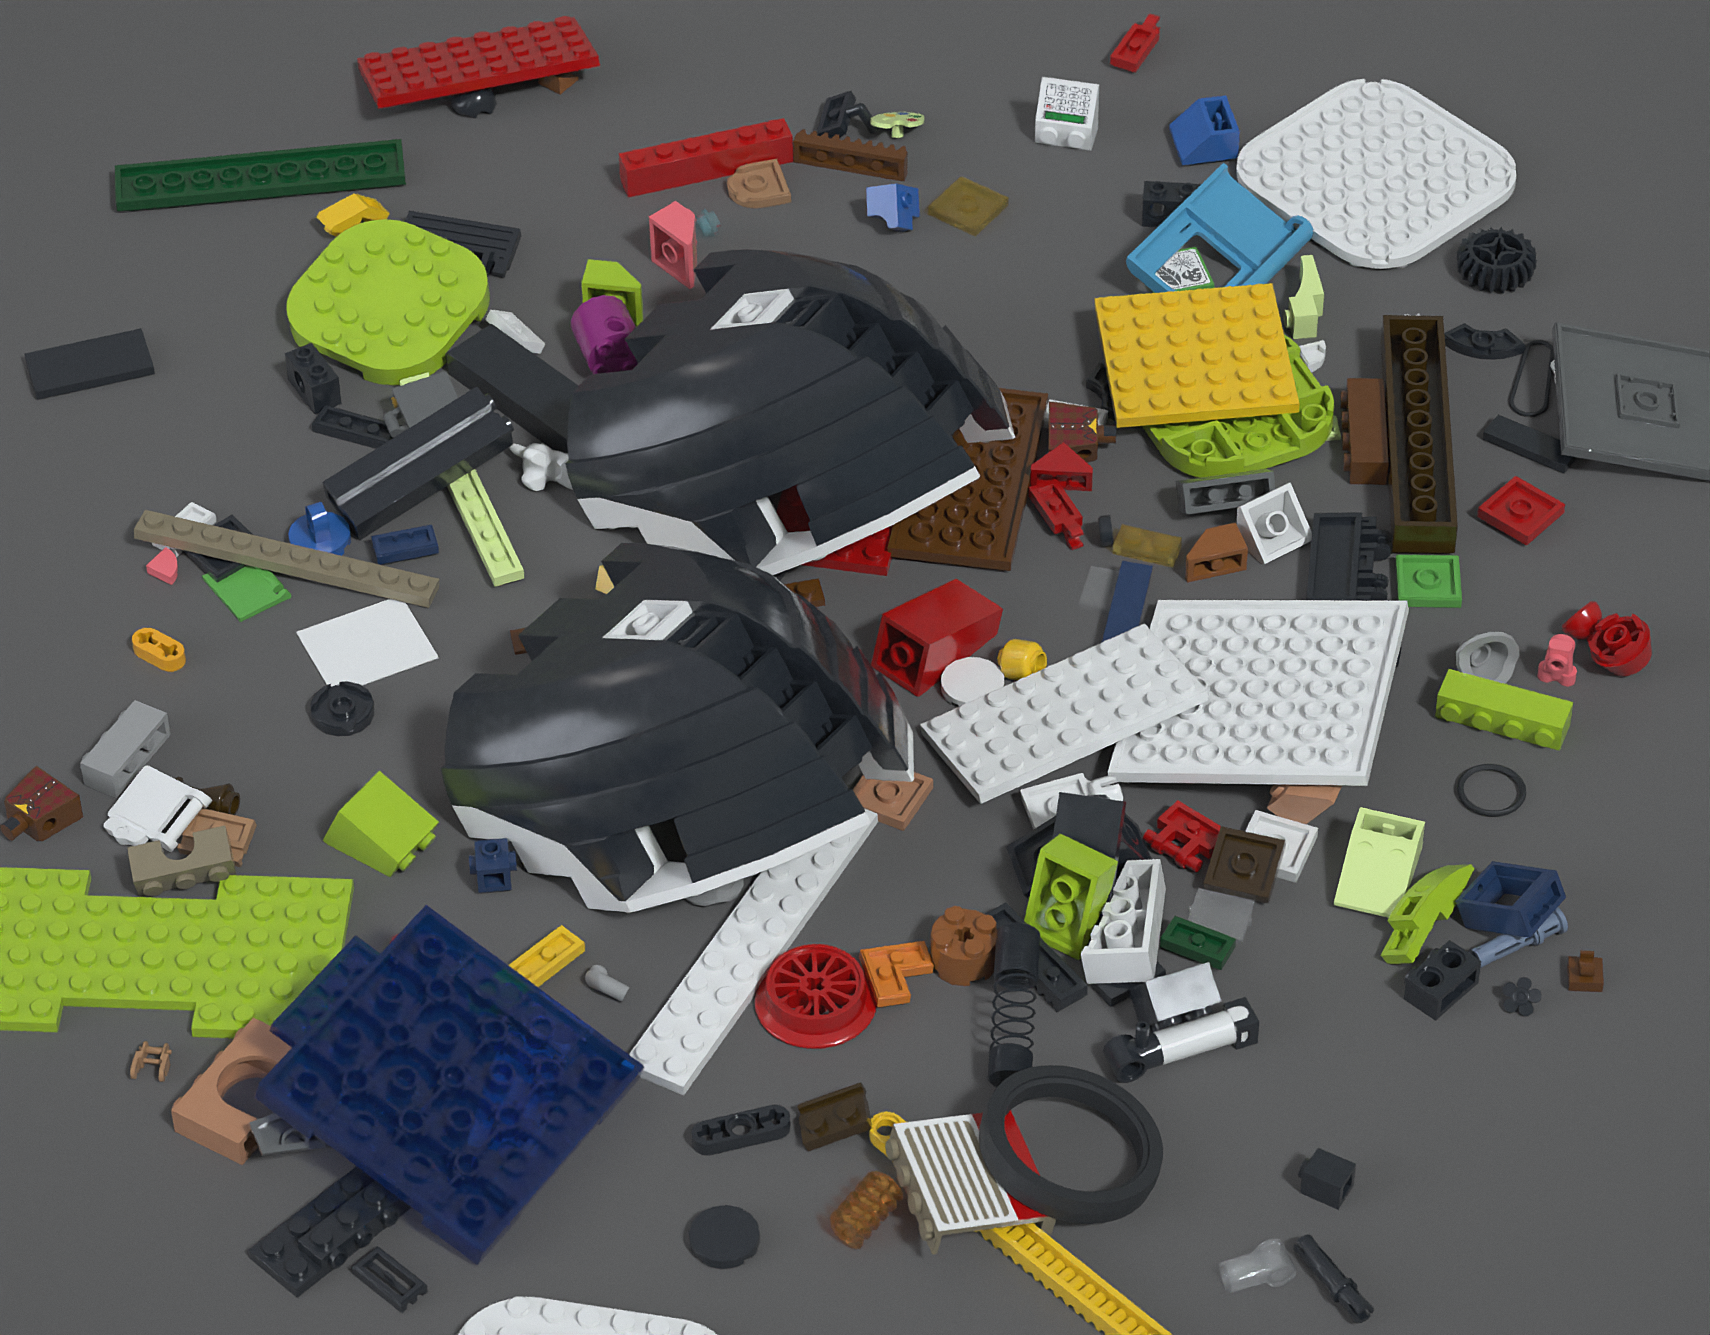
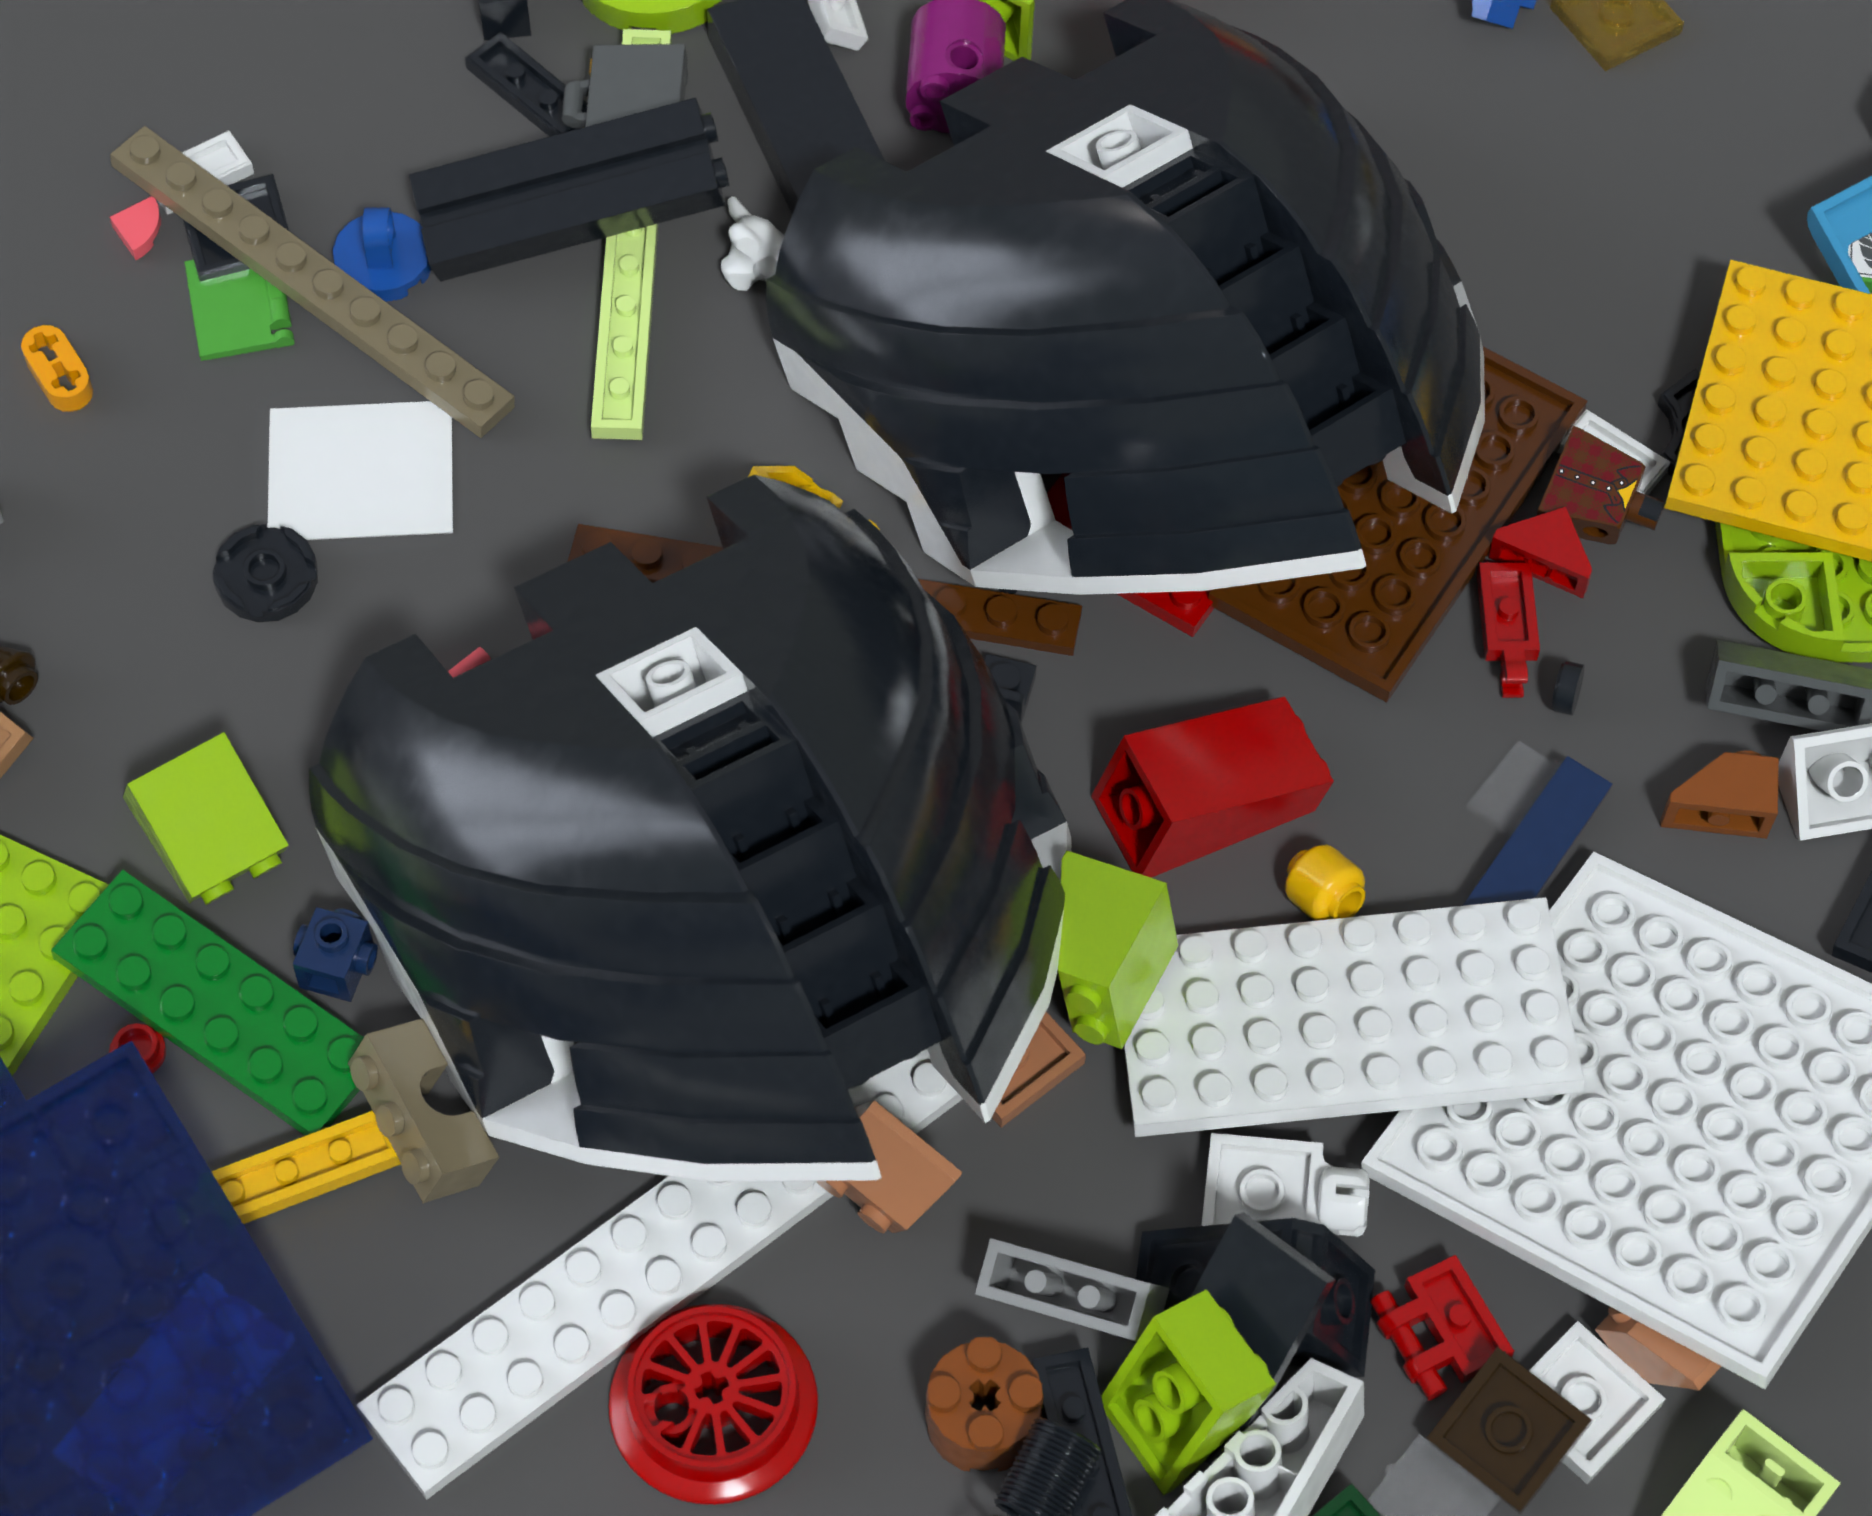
camera: 20 degrees right, 15 degrees up
(393, 898) = (214, 1003): none -> green plate
(405, 544) = (495, 317): dark blue plate -> none
(599, 980) = (399, 1242): light grey arm -> none
(603, 930) = (435, 1149): none -> dark tan arch
(858, 857) = (910, 1172): none -> nougat slope
(889, 965) = (849, 1386): orange tile -> none
(929, 709) = (1111, 946): none -> lime slope
(970, 680) = (1231, 888): white tile -> none
(984, 876) = (1069, 1290): none -> light grey brick
(1147, 545) = (1624, 736): clear yellow plate -> none

